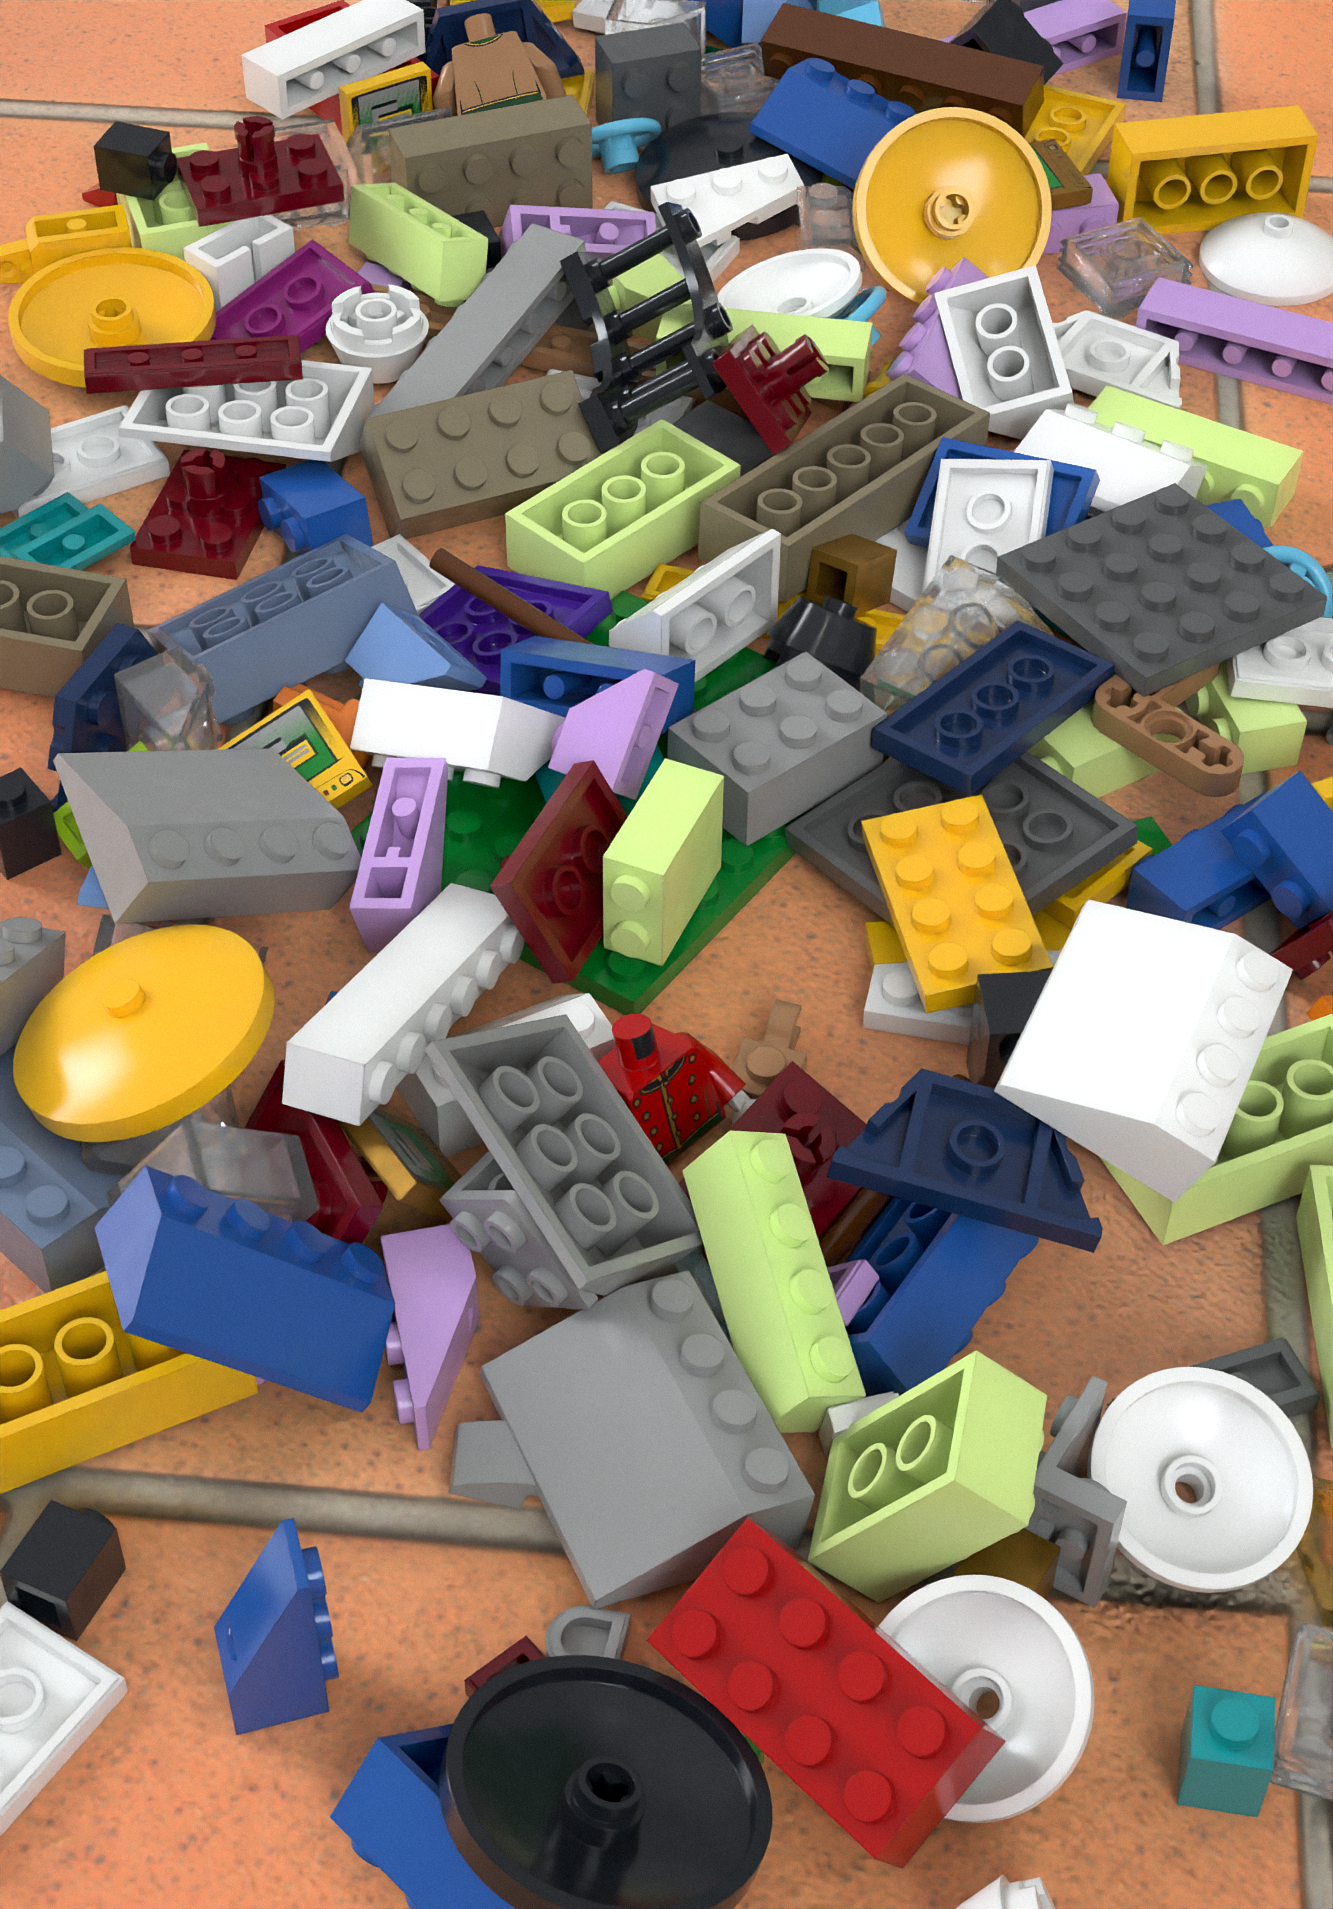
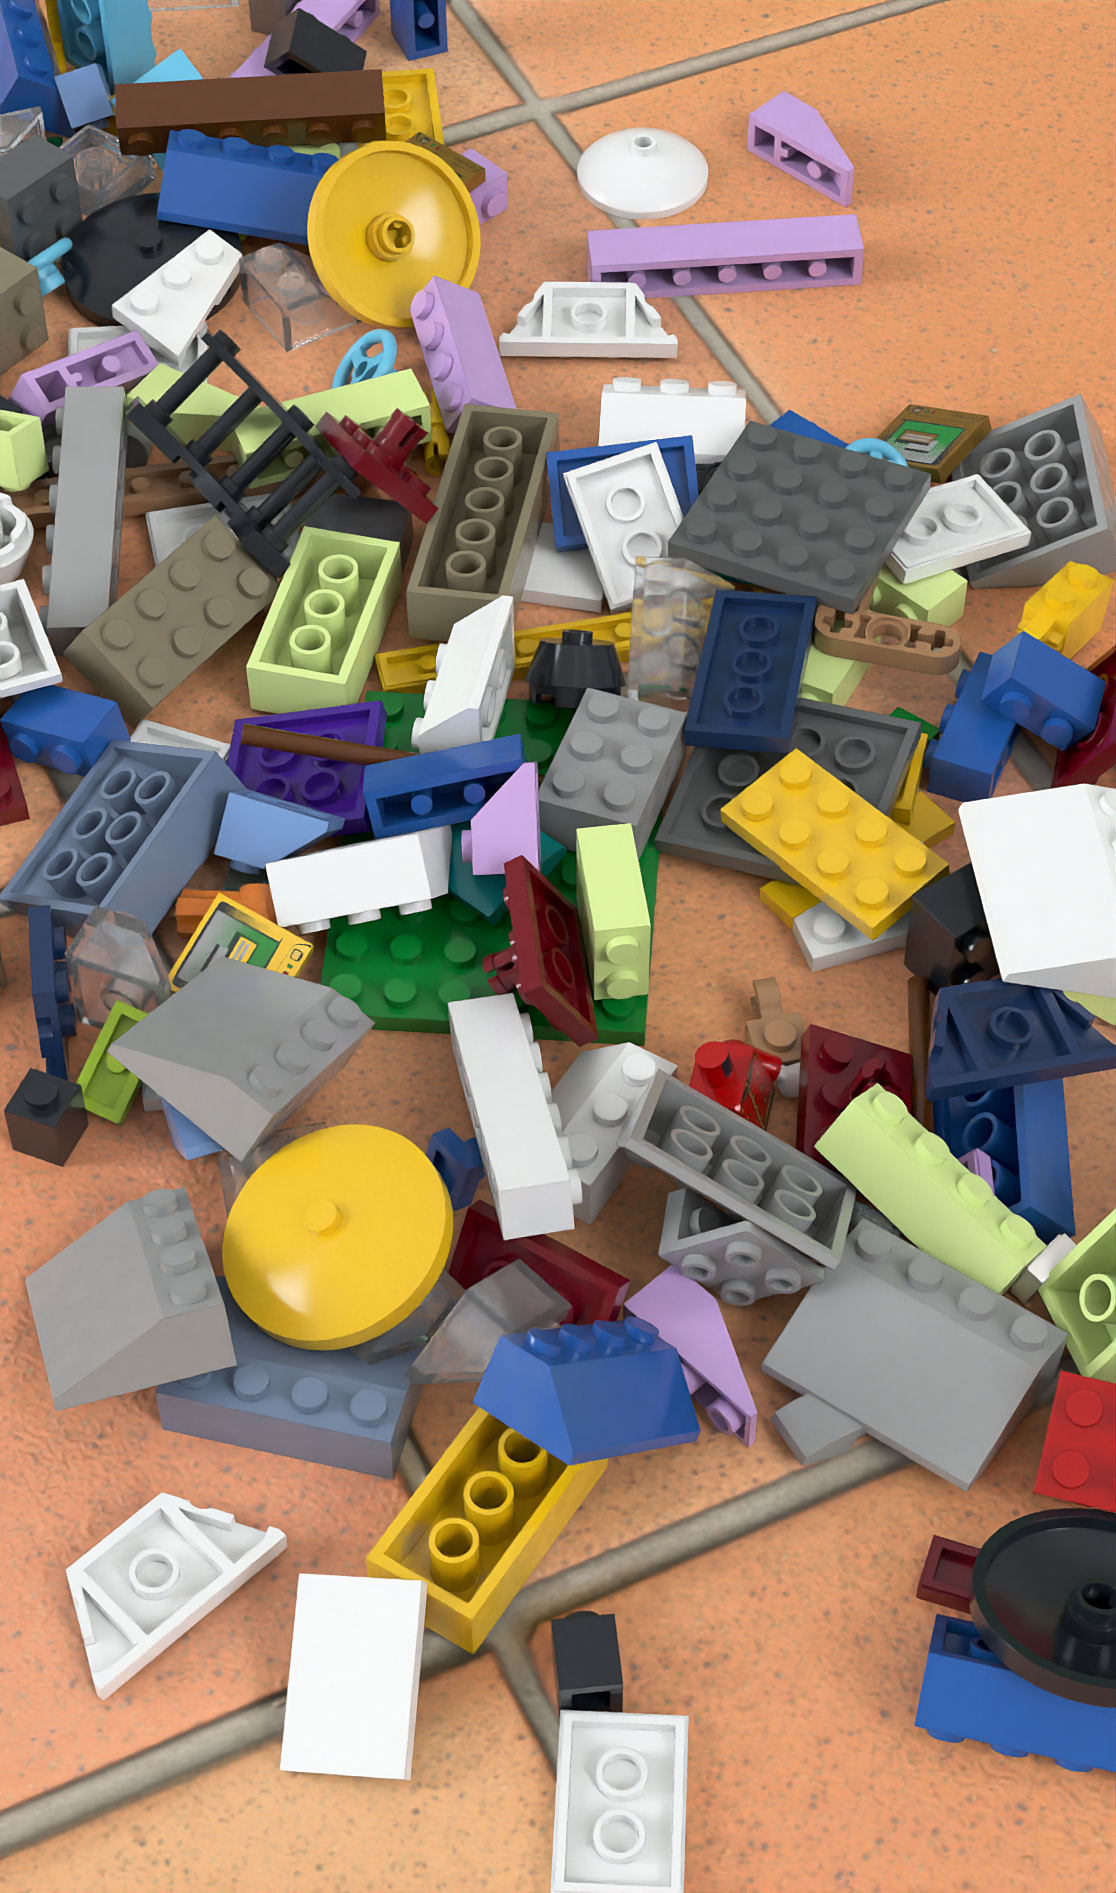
camera: 30 degrees left, 5 degrees up
(278, 1637) = (795, 1623): blue slope -> none
(402, 849) = (397, 996): lavender slope -> none
(405, 1161) = (610, 1244): pearl gold tile -> none
(588, 1632) = (973, 1516): light grey tile -> none
(797, 283) = (307, 353): white dish -> none
(852, 571) = (545, 601): pearl gold brick -> none
(1005, 349) = (528, 348): white slope -> none
(1120, 265) = (542, 228): clear brick -> none
(1212, 167) = (557, 110): yellow brick -> none
(1238, 462) = (771, 376): yellowish green brick -> none

